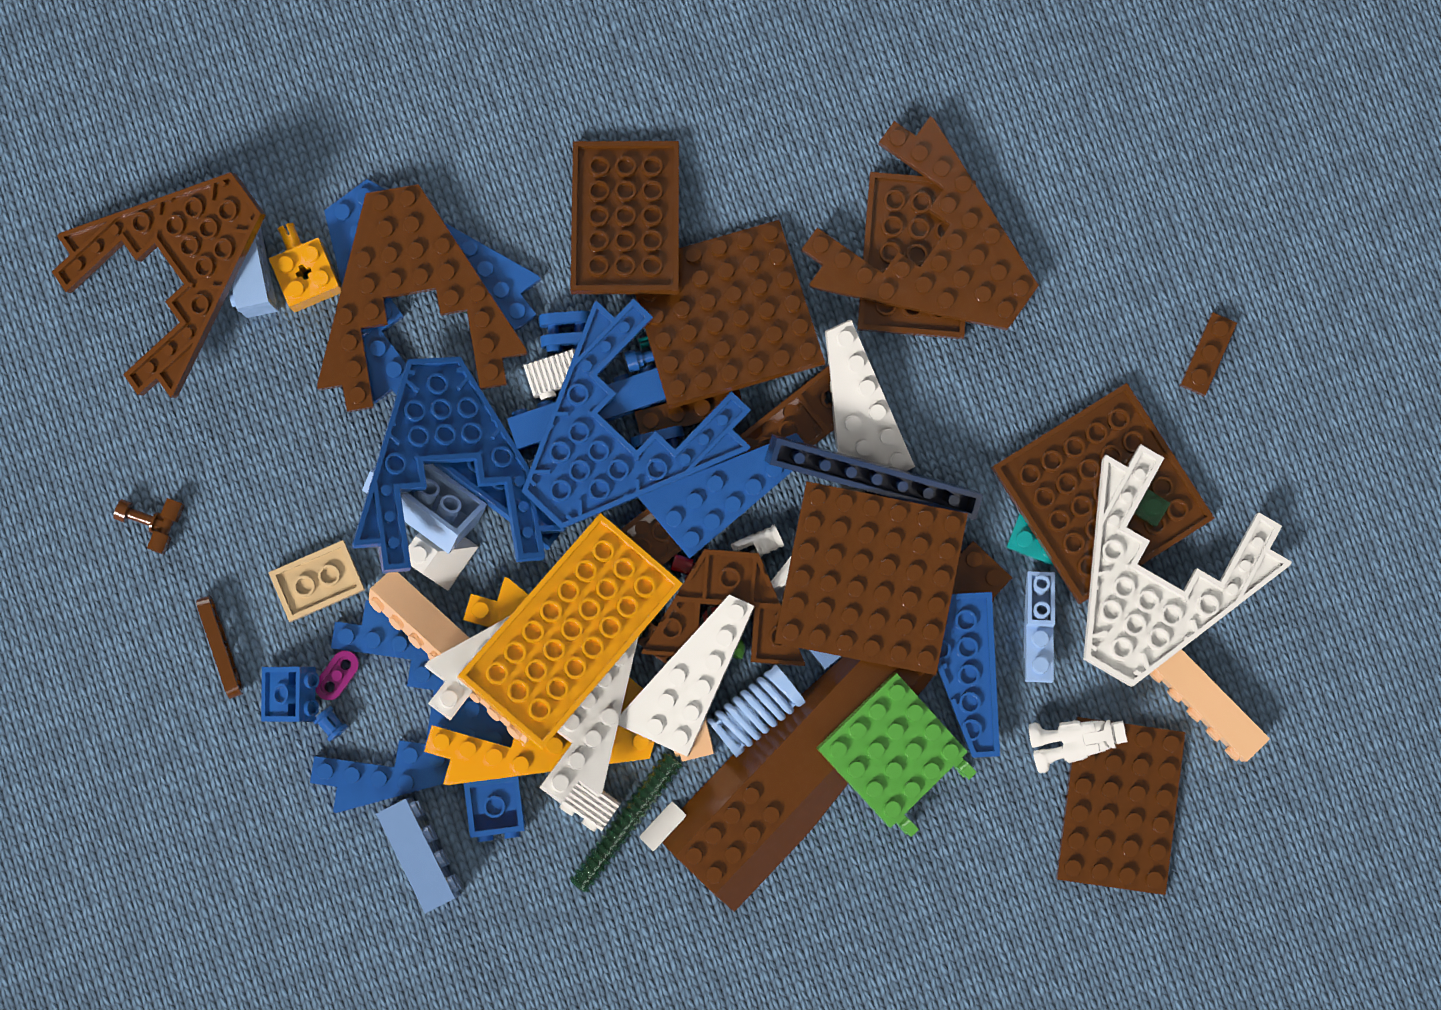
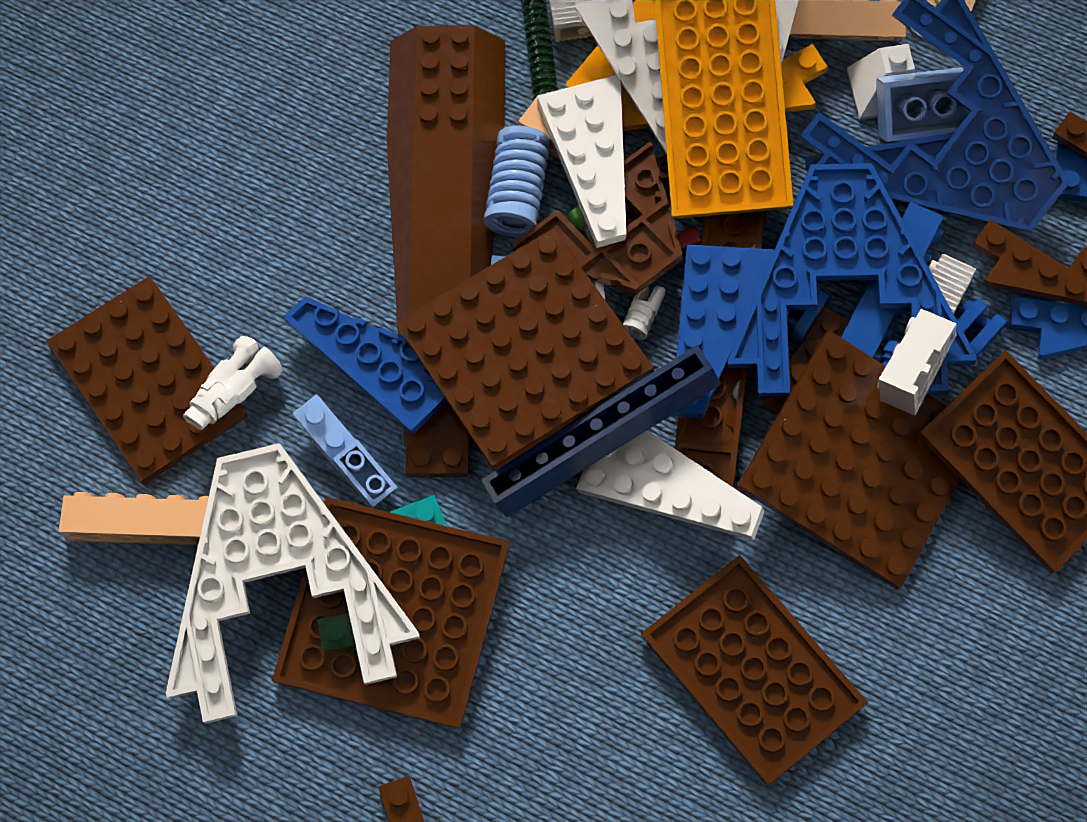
camera: 140 degrees right, 15 degrees down
(640, 330) = (916, 361): none -> white wedge
(662, 826) = (506, 50): white sticker -> none
(894, 751) = (374, 246): bright green plate -> none
(968, 274) = (694, 699): reddish brown wing -> none

